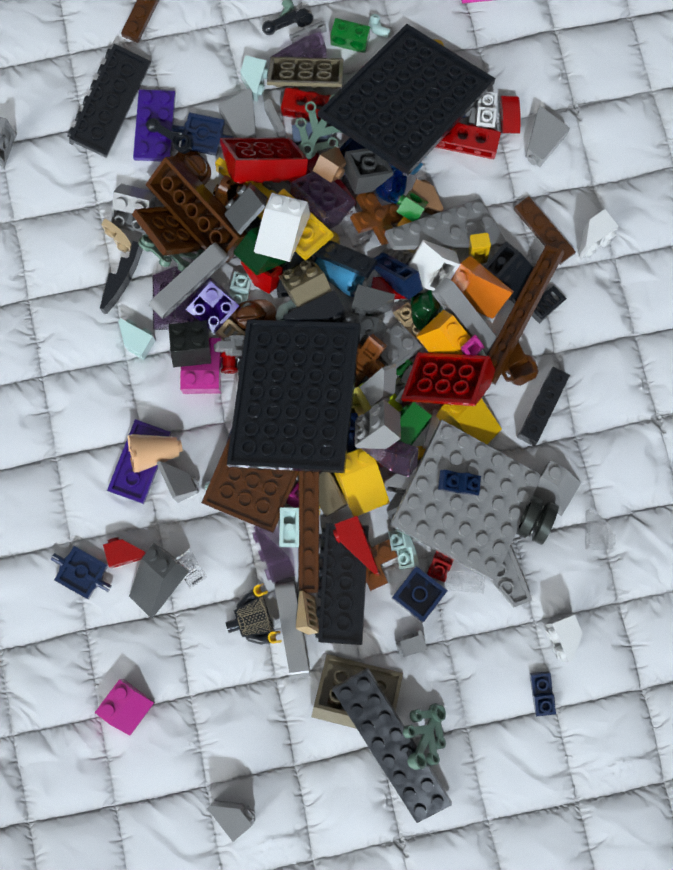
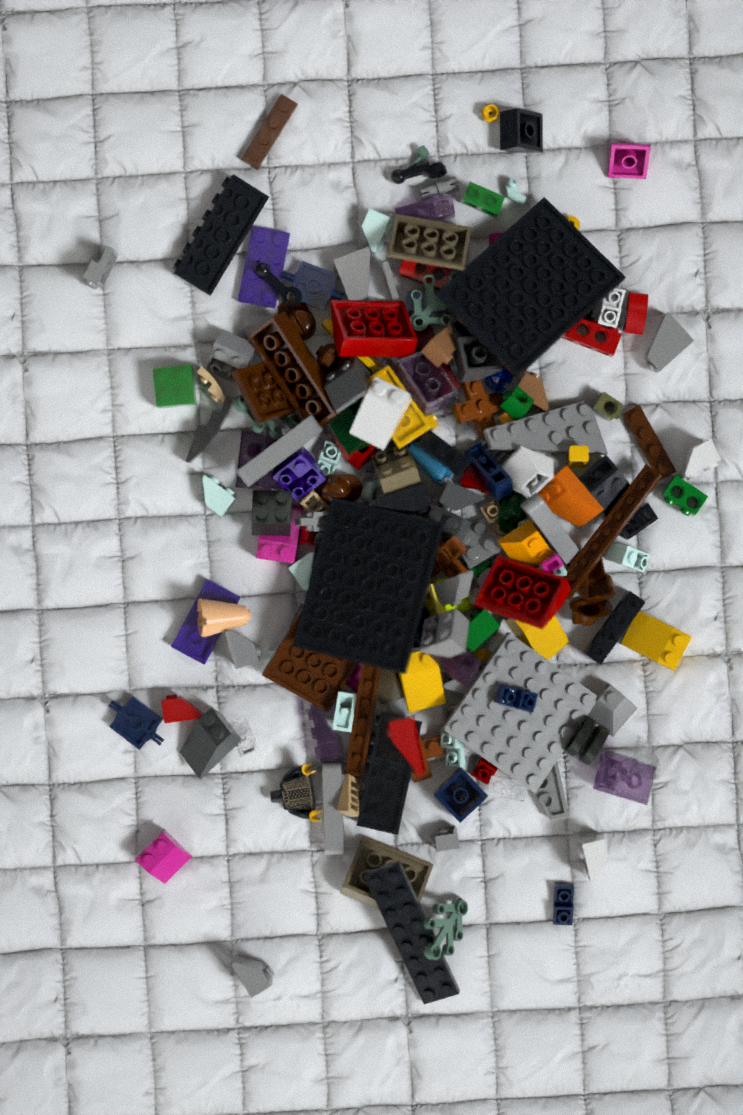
camera: 10 degrees right, 10 degrees up
(82, 242) = (174, 386): none -> green brick
(227, 395) = (302, 570): none -> light aqua slope
(499, 194) = (599, 407): none -> olive brick
(514, 396) = (588, 612): none -> reddish brown piece
(543, 337) = (627, 556): none -> light aqua slope
(582, 549) = (624, 777): none -> clear purple slope
(587, 413) = (656, 640): none -> yellow slope
(589, 267) = (686, 491): none -> green brick

